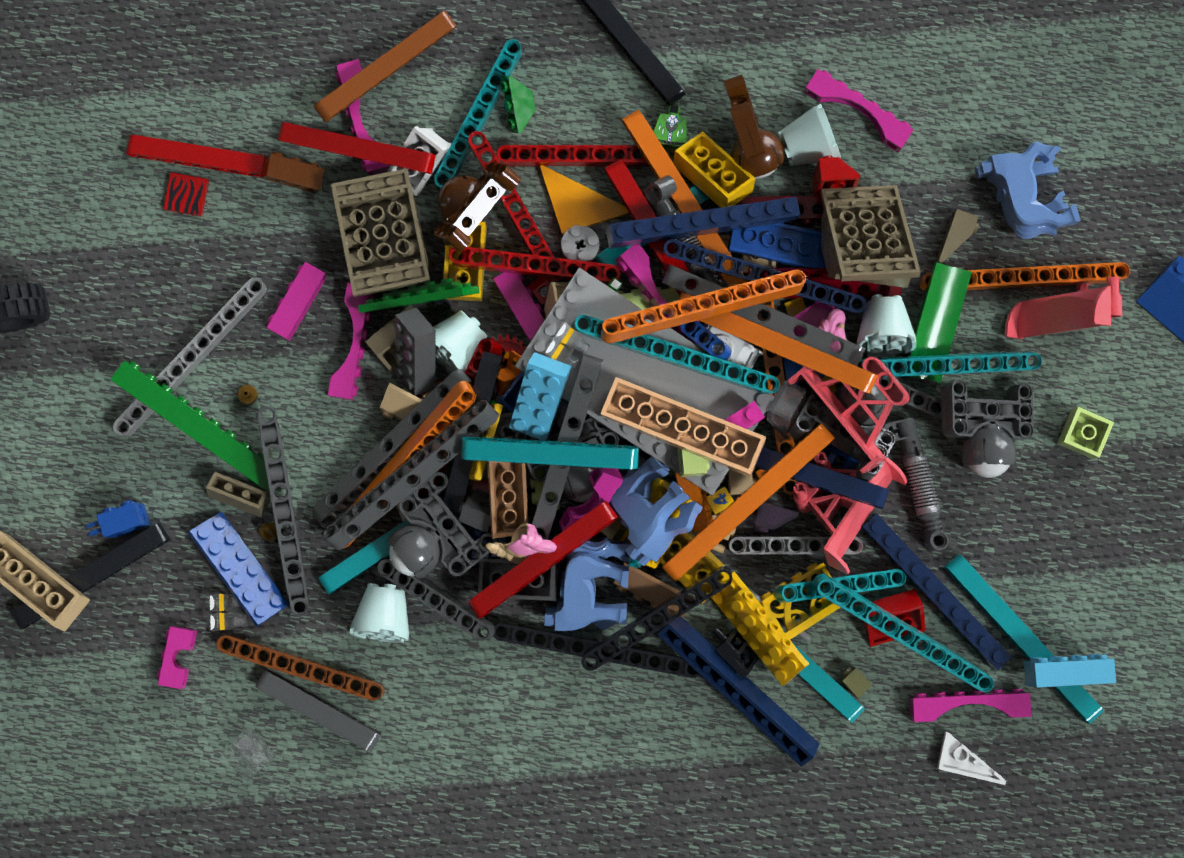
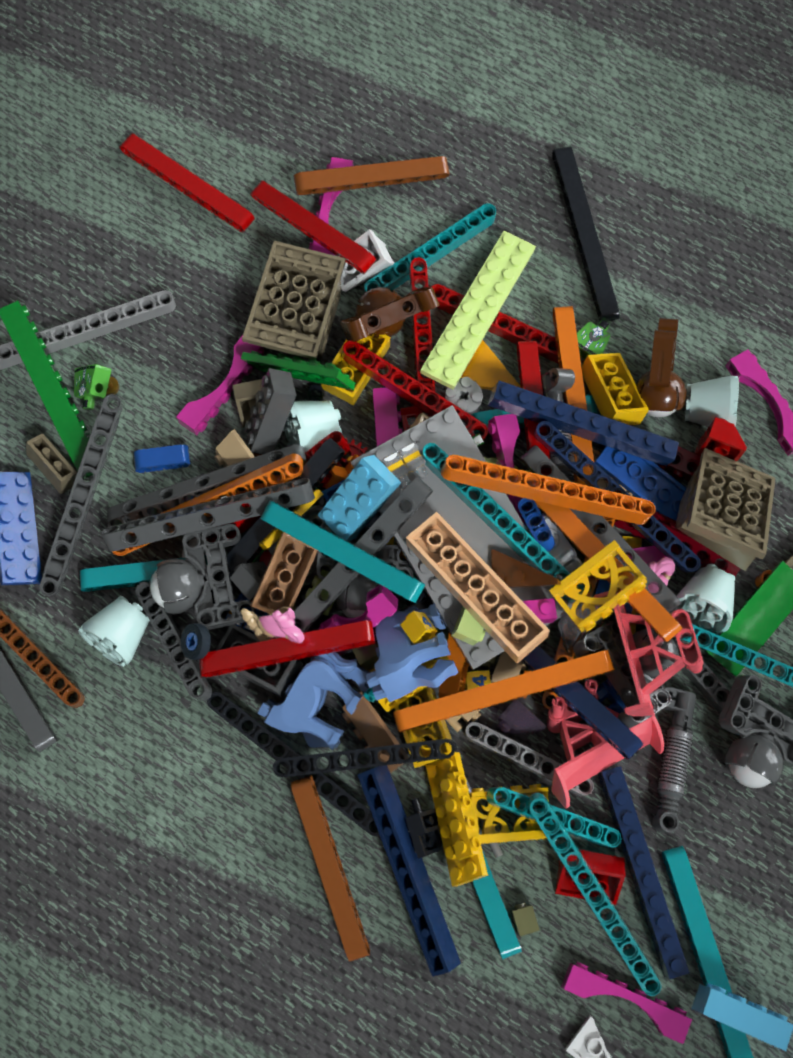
camera: 25 degrees right, 10 degrees down
(186, 194) = (150, 202): red tile -> none
(232, 403) = (91, 384): none -> bright green torso
(268, 531) = (58, 509): pearl gold tile -> none
(292, 172) = (247, 222): reddish brown brick -> none
(296, 301) = (194, 329): dark pink brick -> none
(334, 438) = (161, 457): none -> blue beam
(459, 592) = (195, 641): none -> black bush
(517, 102) = (469, 256): green slope -> none
(552, 153) = (477, 310): none -> yellowish green plate
(649, 486) = (418, 627): none -> yellow brick
(672, 722) = (330, 868): none -> dark orange beam
(707, 396) = (518, 574): none -> reddish brown wing
(762, 382) = (591, 567): none -> yellow fence

